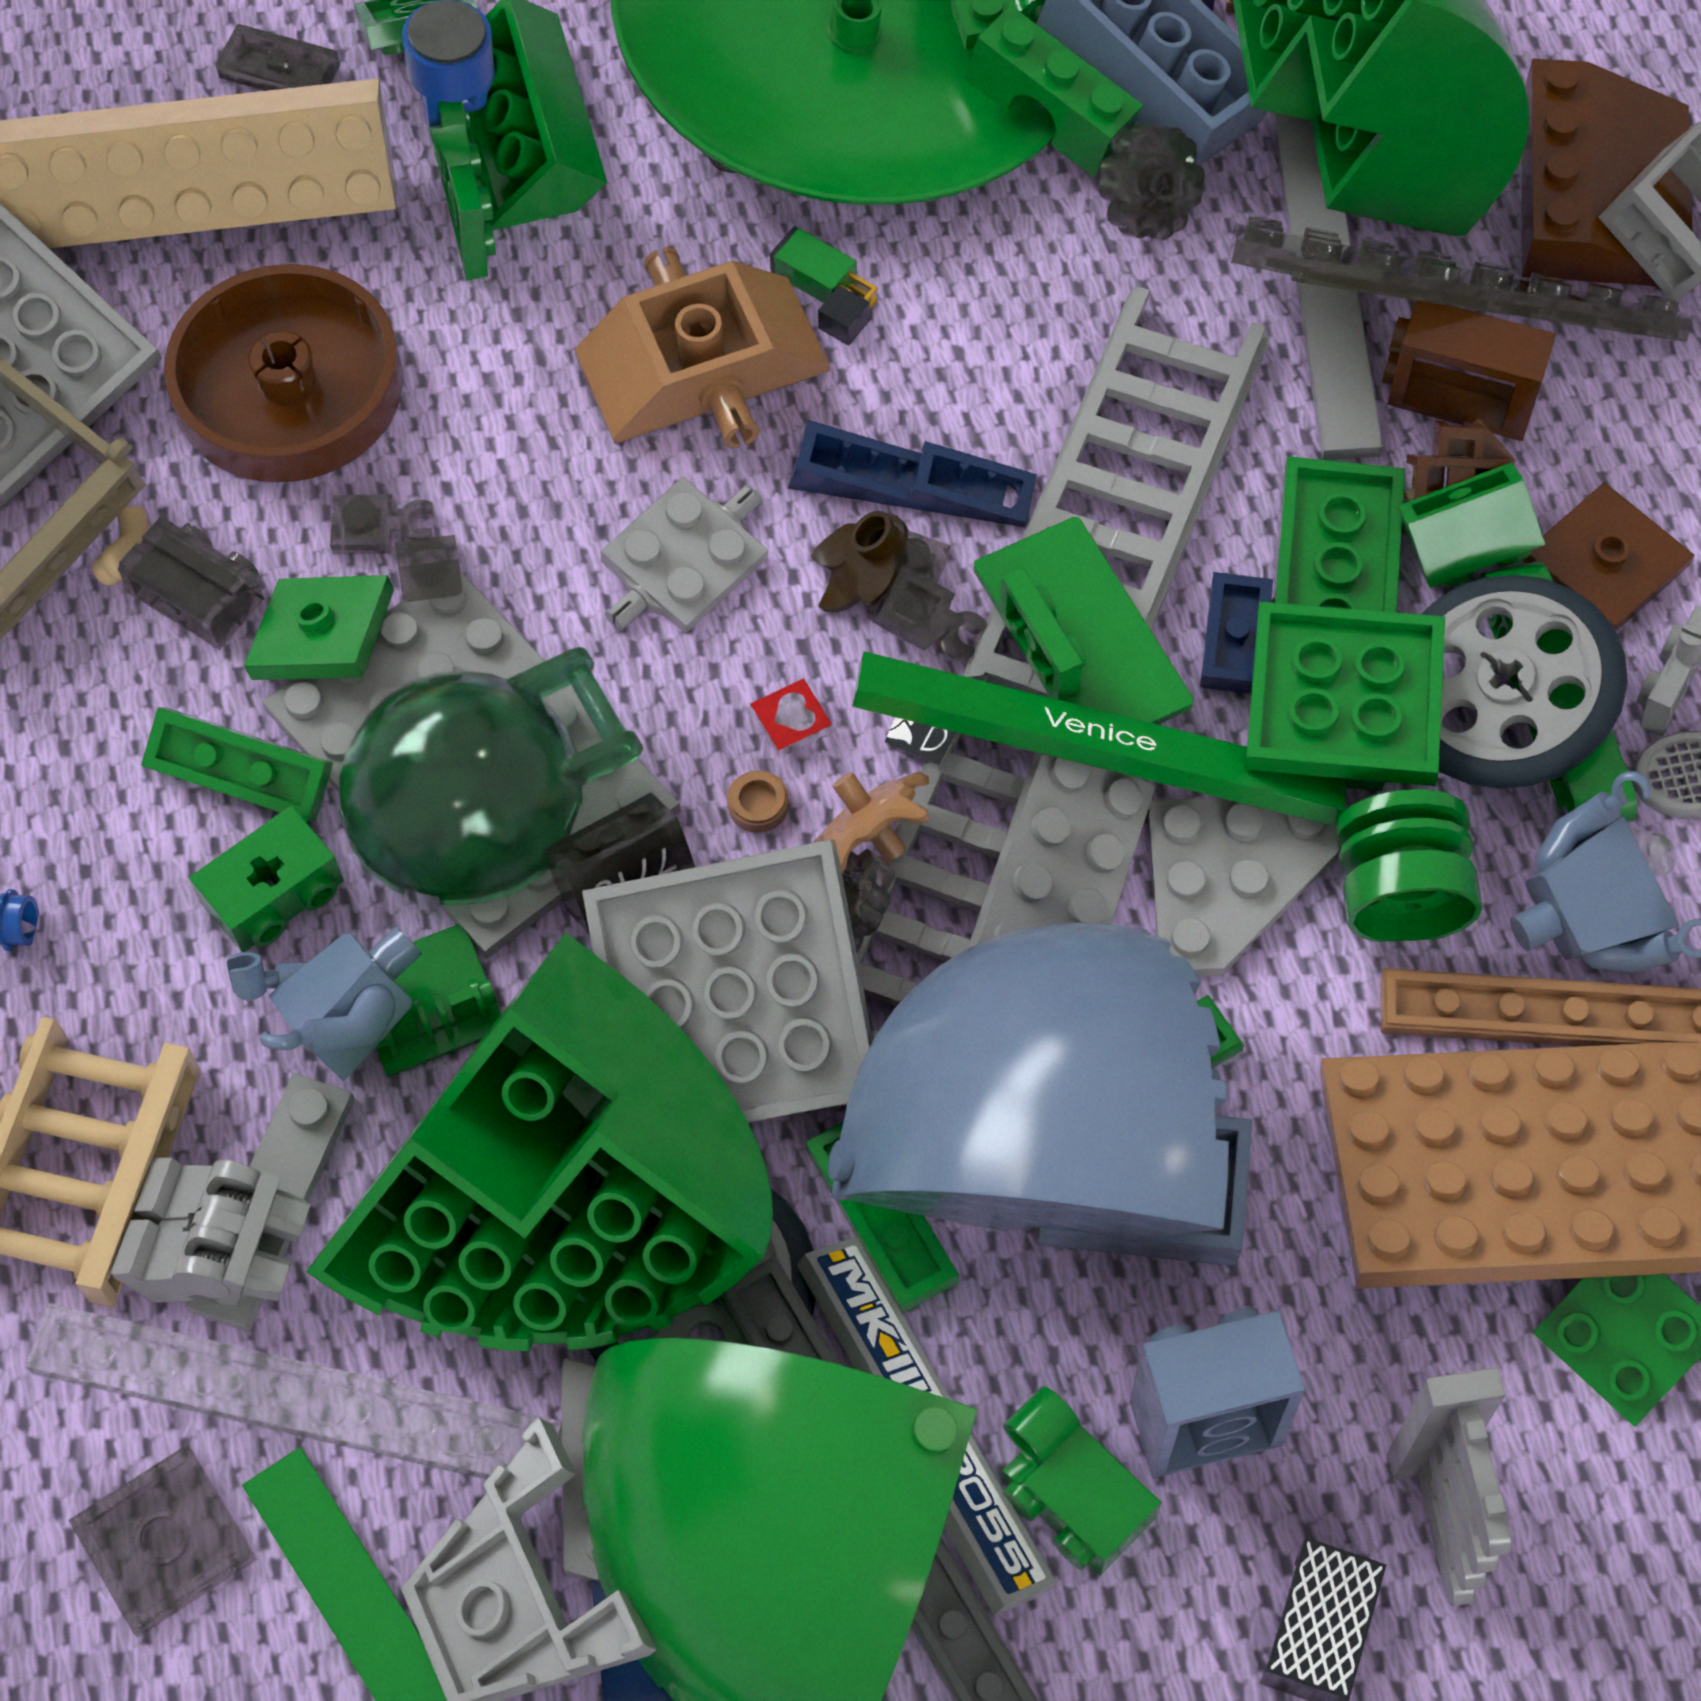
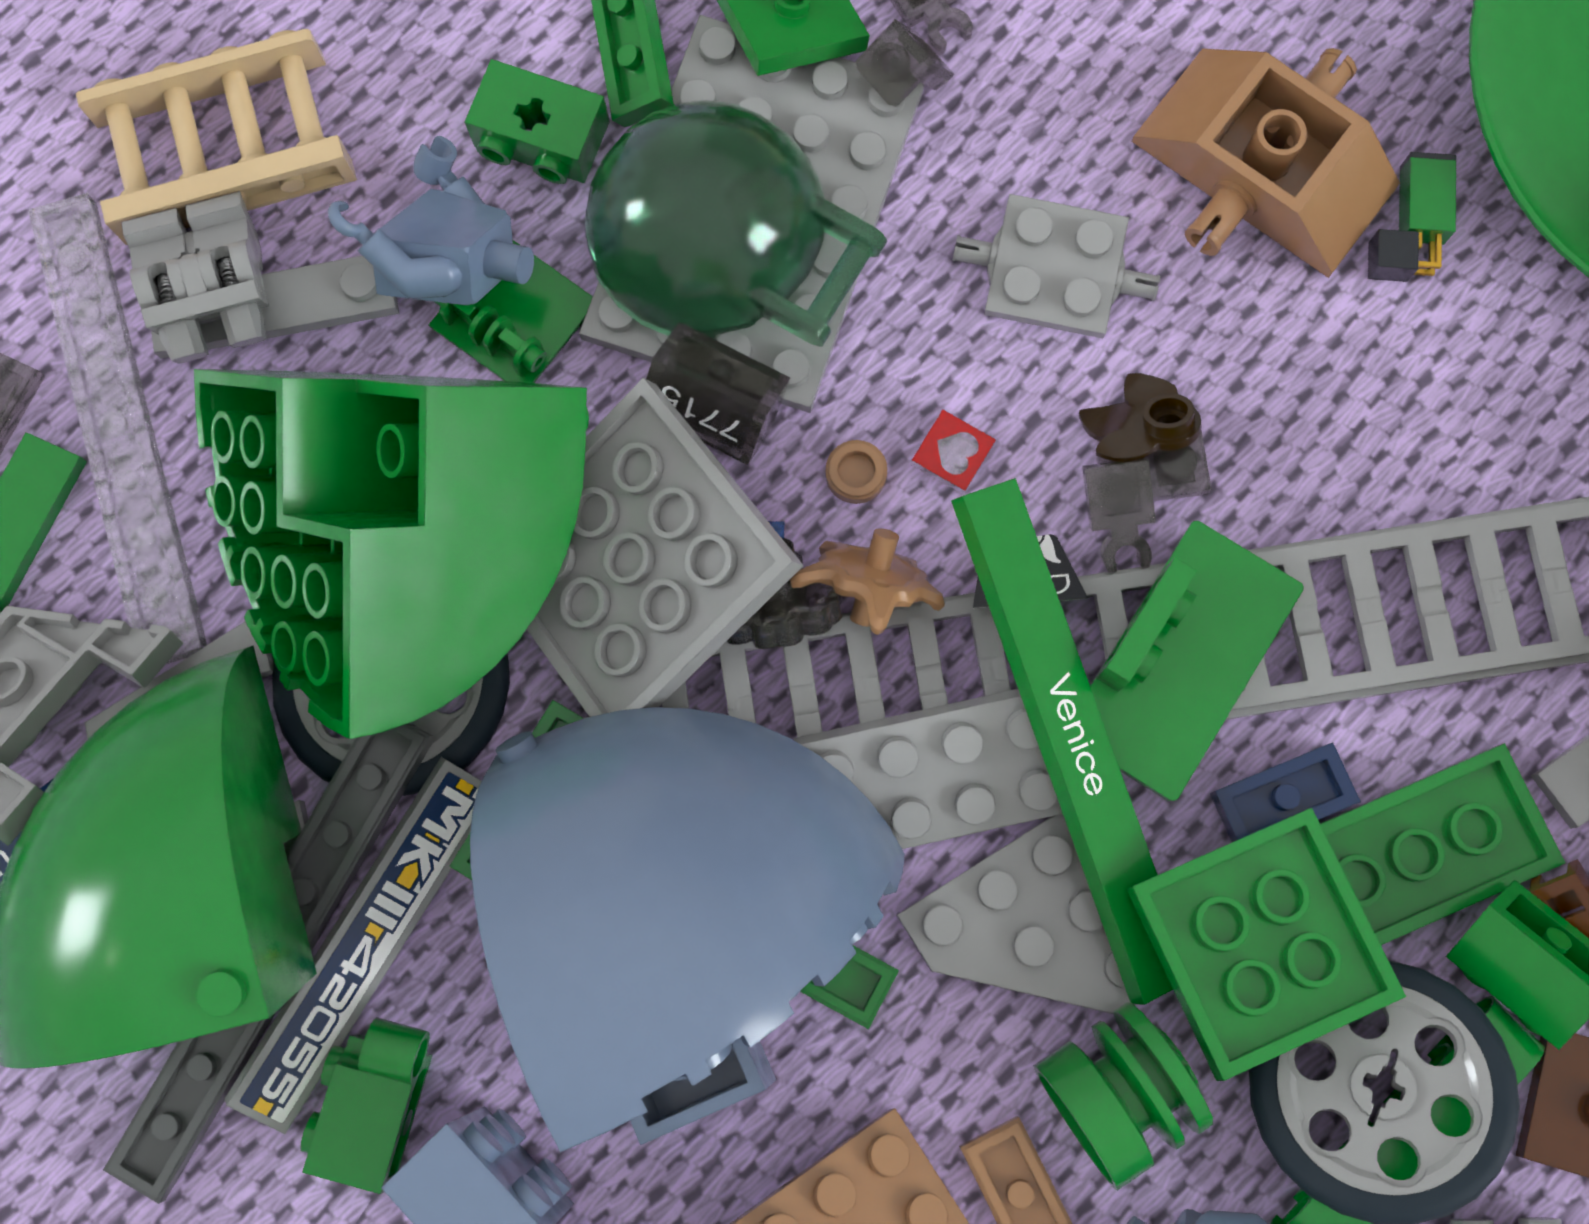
camera: 60 degrees right, 15 degrees up
(930, 481) = (1273, 432): dark blue slope -> none

